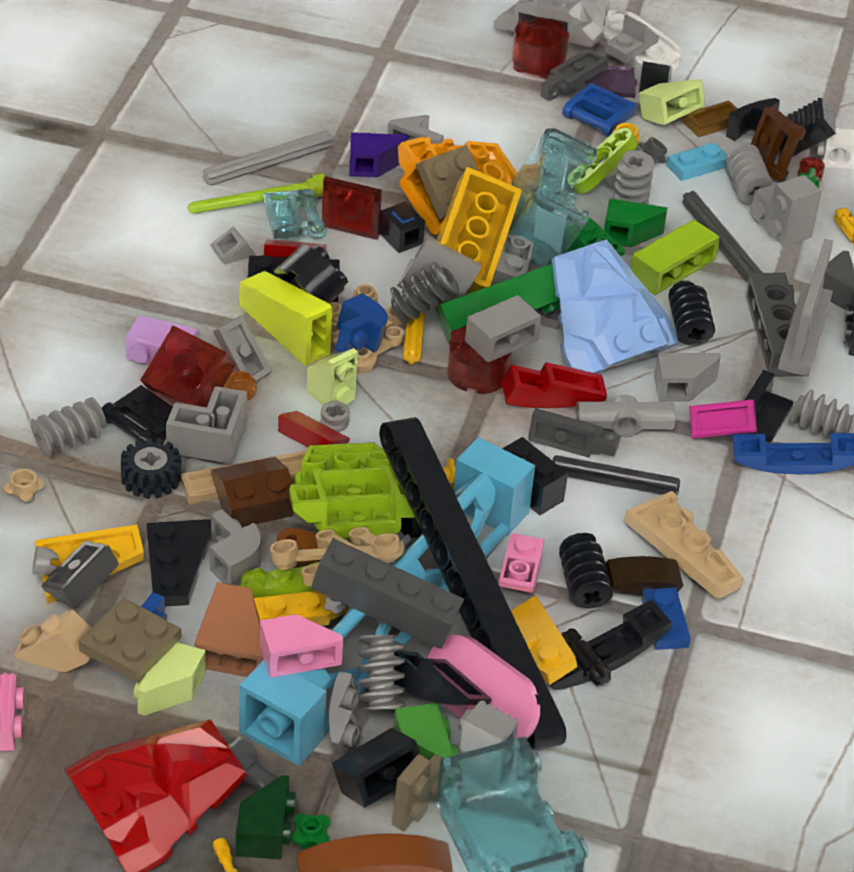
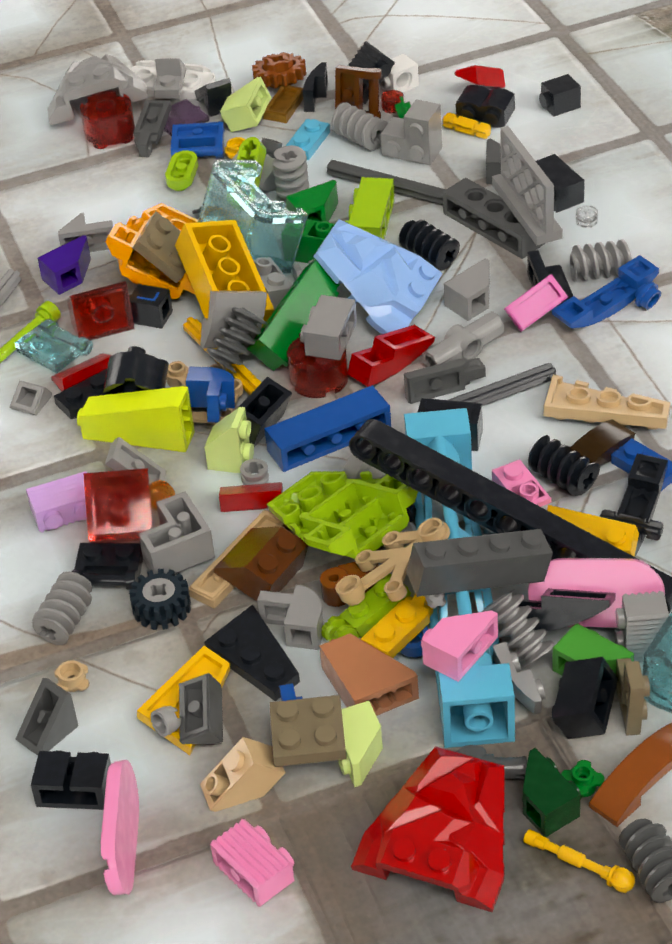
camera: 30 degrees left, 0 degrees up
(387, 367) = (265, 407): none -> black brick
(444, 416) = (324, 428): none -> blue brick
(565, 120) = (181, 170): none -> lime plate
(737, 85) = (280, 69): none -> dark orange gear
(836, 475) = (647, 295): none -> blue plate

